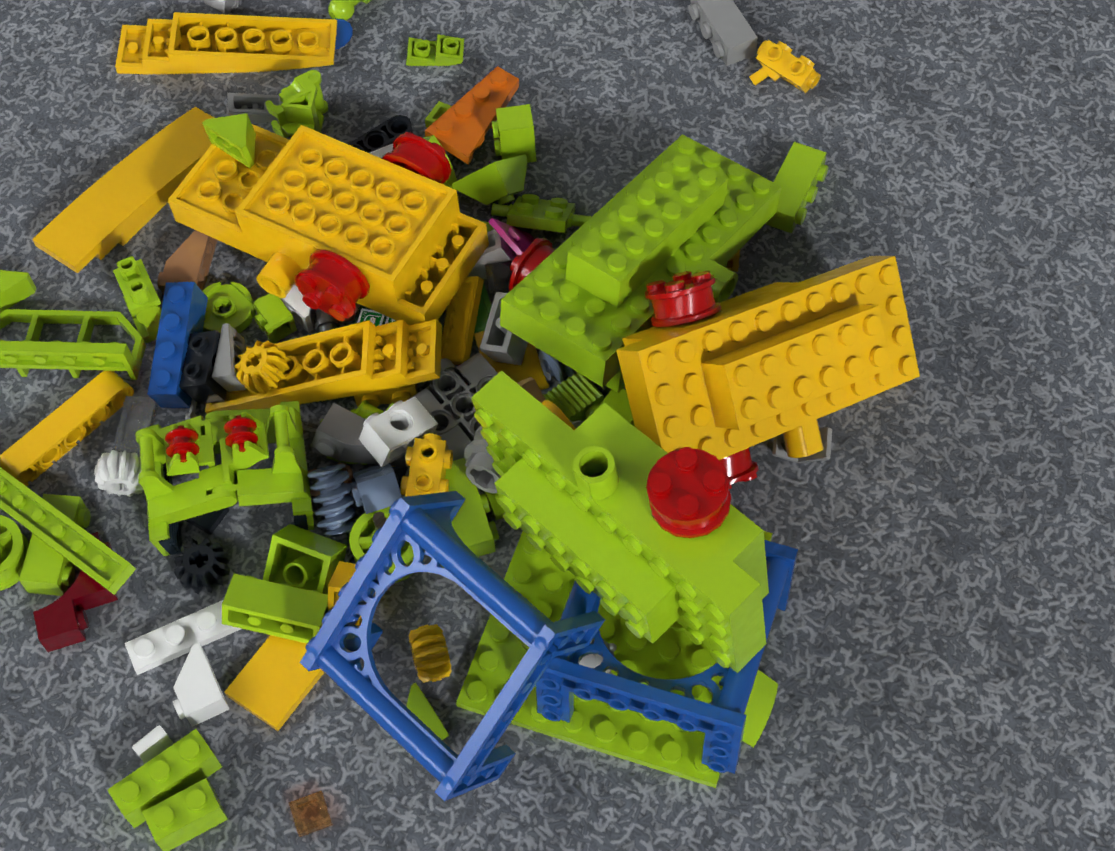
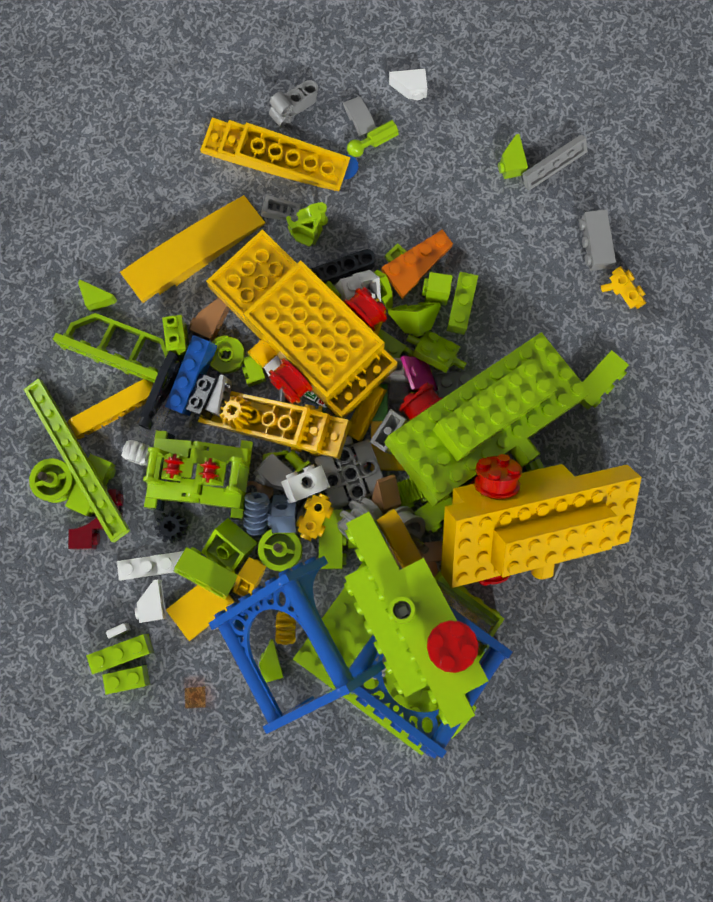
camera: 15 degrees right, 20 degrees up
(141, 343) = (157, 395): none -> black plate
(234, 136) = (259, 251): lime slope -> none
(442, 52) = (405, 201): lime slope -> none
(558, 147) = (462, 303): none -> lime brick

